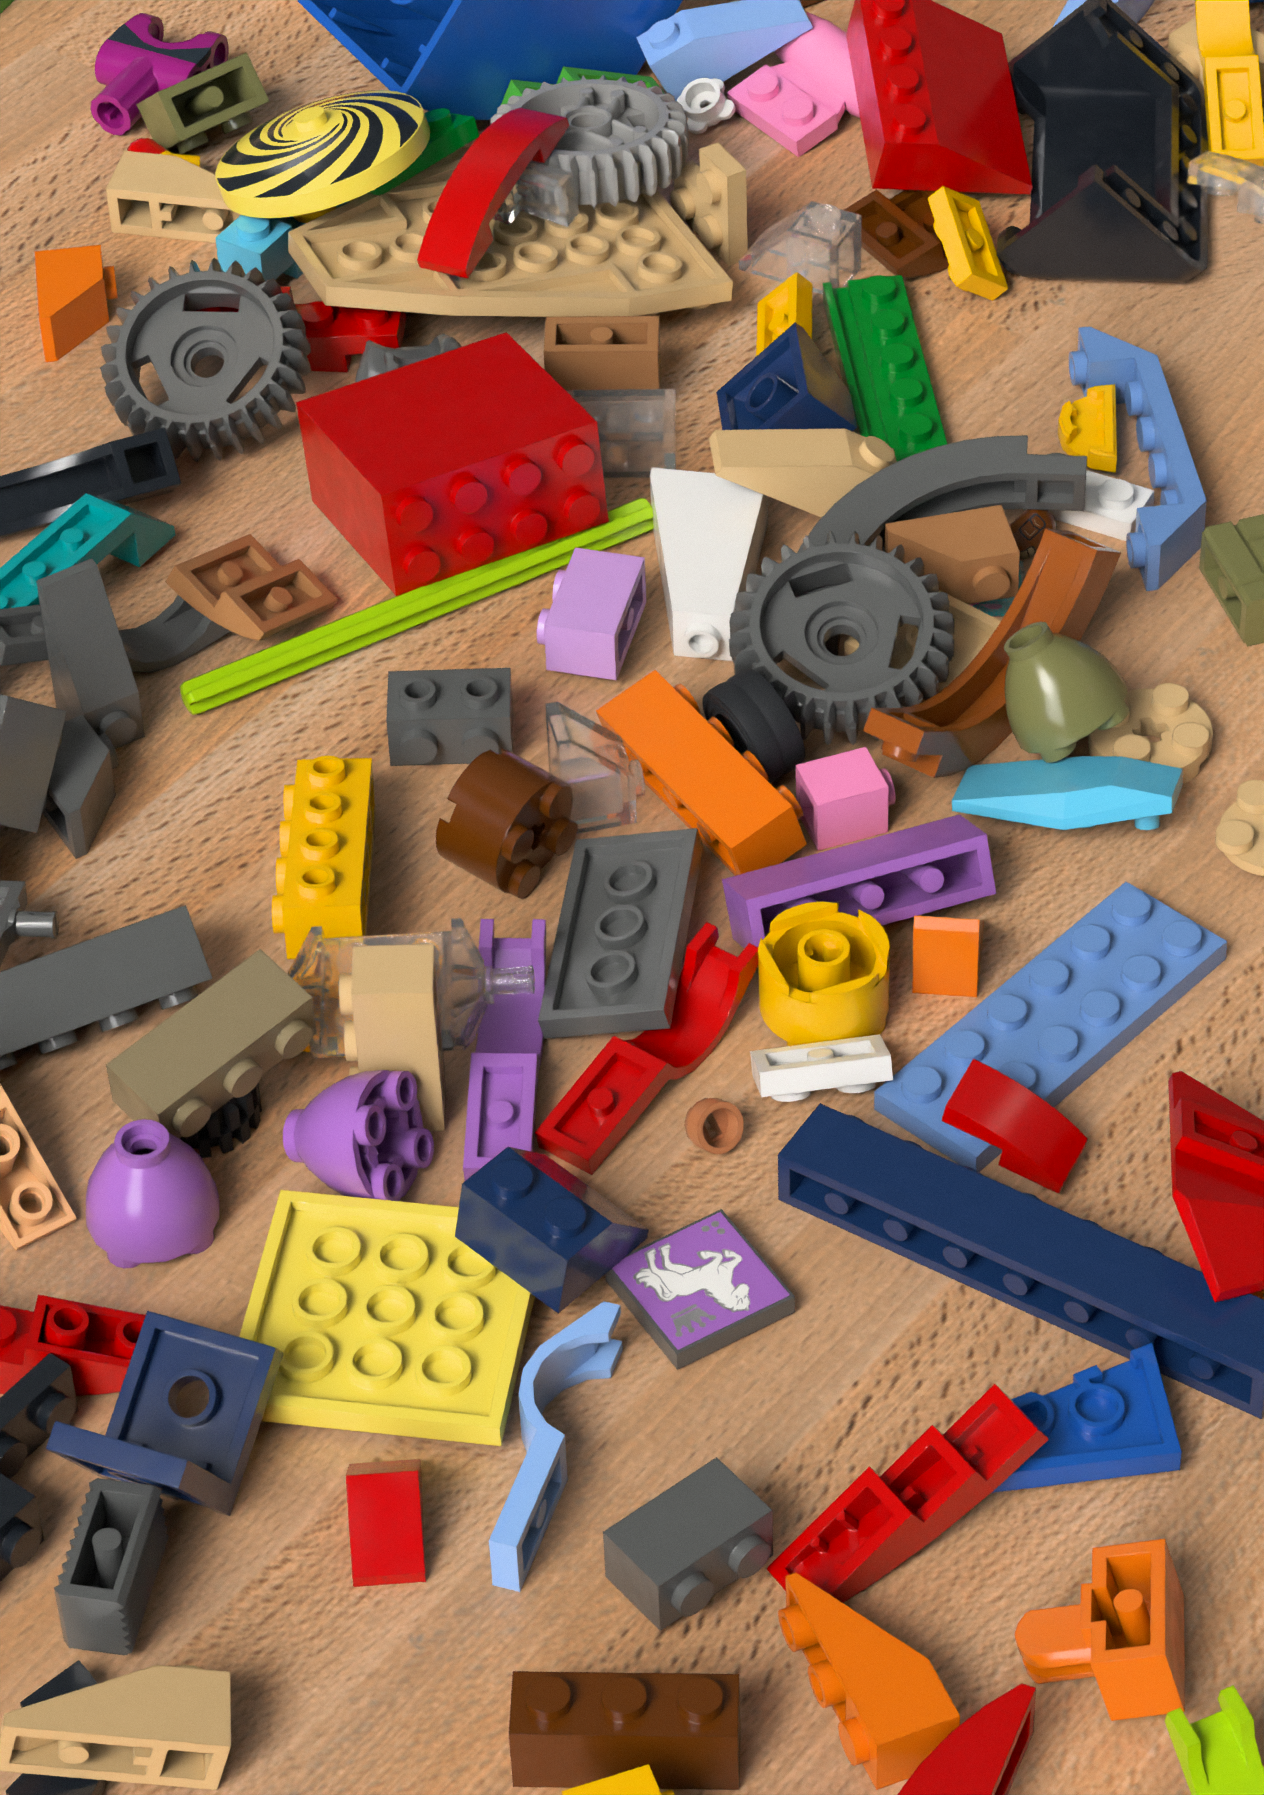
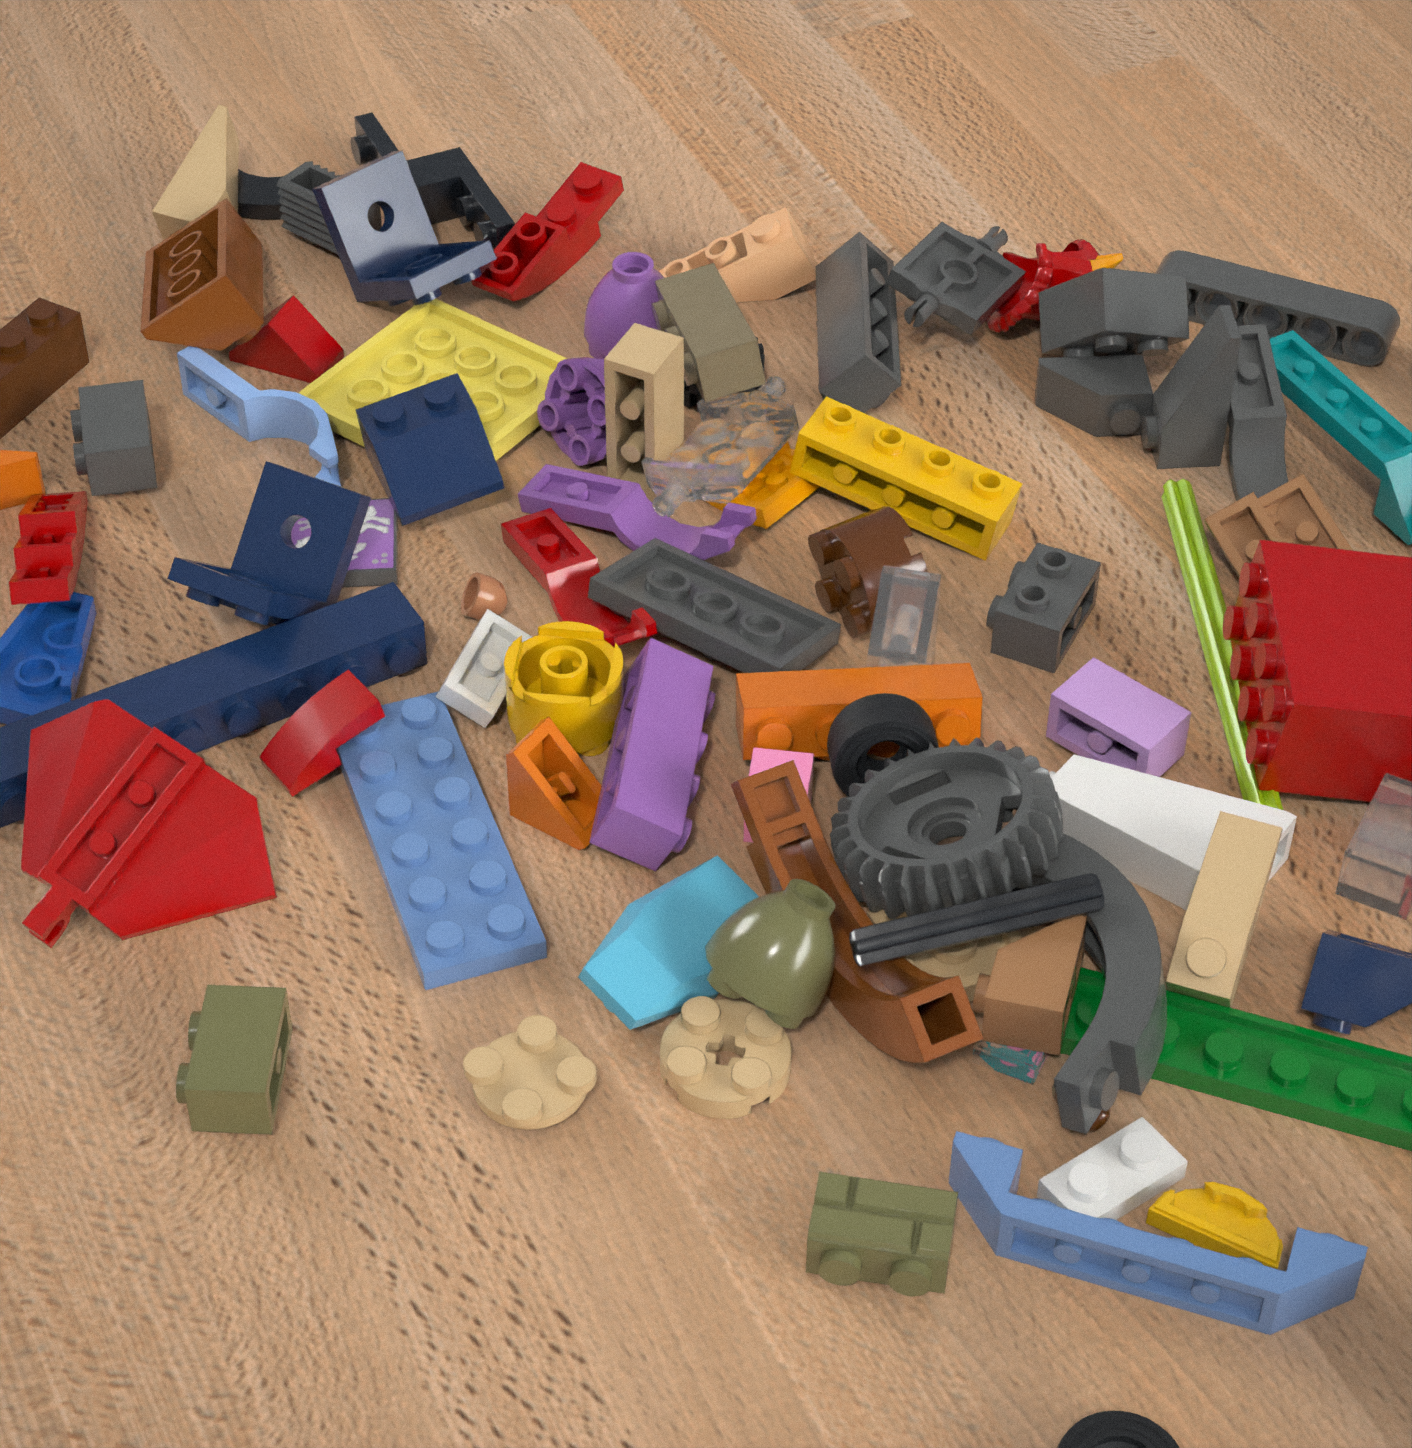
camera: 115 degrees right, 0 degrees up
(363, 1597) = (205, 283): none -> dark orange slope
(831, 1278) = (271, 575): none -> dark blue bracket
(965, 596) = (976, 919): none -> black axle

